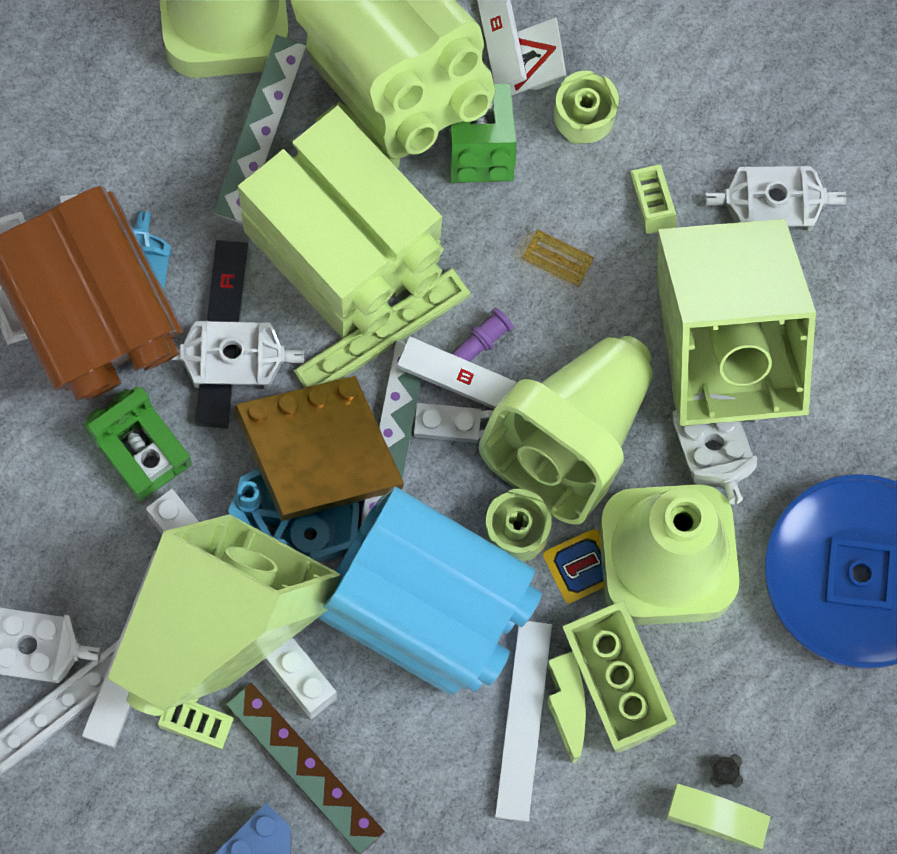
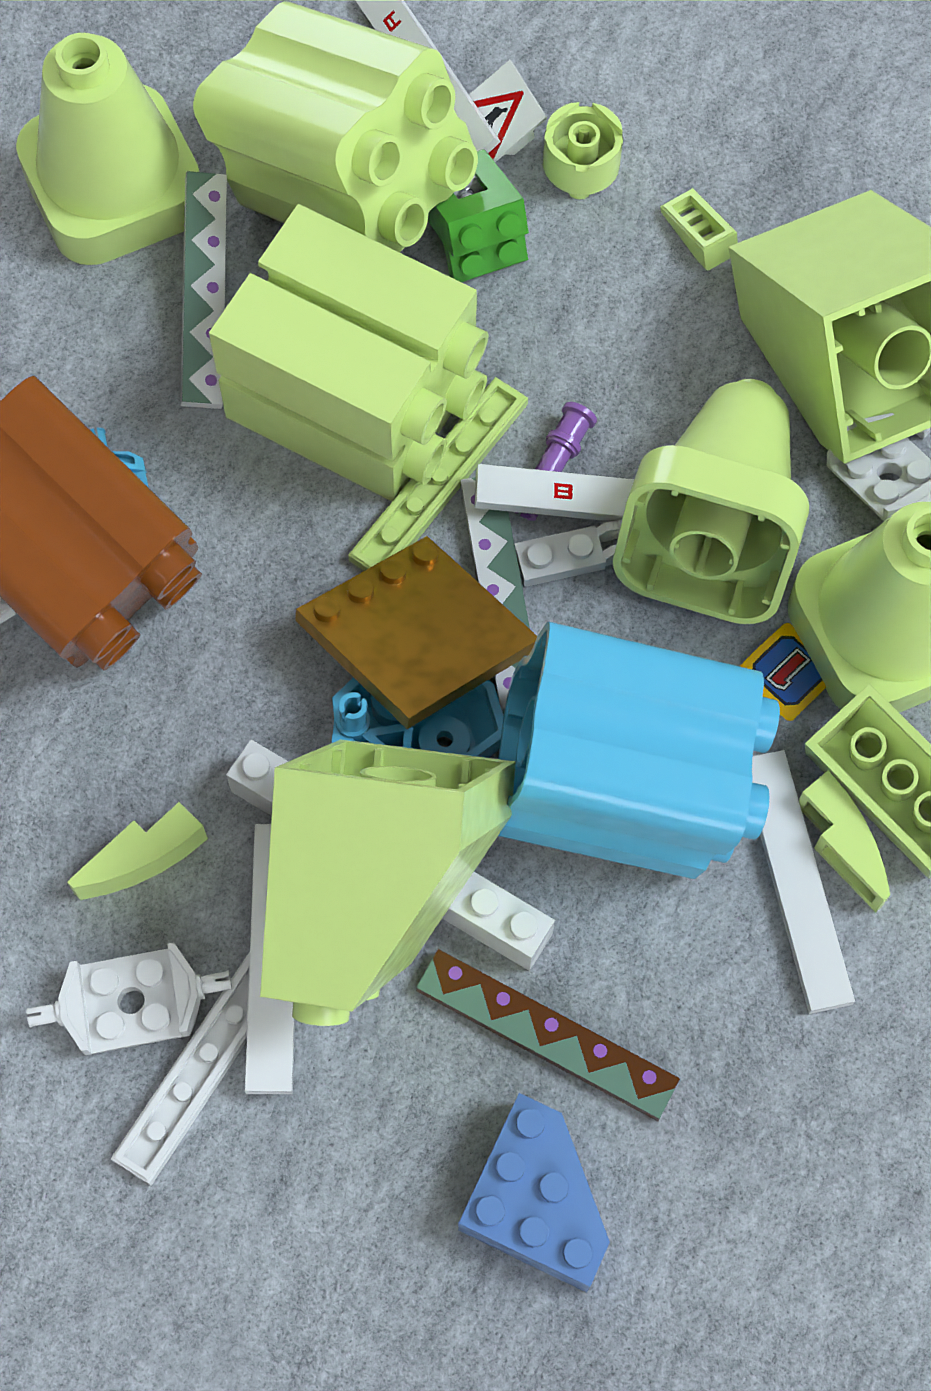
camera: 15 degrees left, 5 degrees down
(67, 544) = (139, 854): none -> yellowish green slope
(119, 421) = (155, 680): bright green brick -> none
(191, 733) = (385, 1040): yellowish green slope -> none
(224, 306) = (243, 543): black tile -> none
(256, 364) = (300, 561): white plate -> none
(524, 507) = (702, 621): yellowish green brick -> none
(552, 268) = (615, 334): clear yellow tile -> none
(750, 199) = (810, 182): white plate -> none

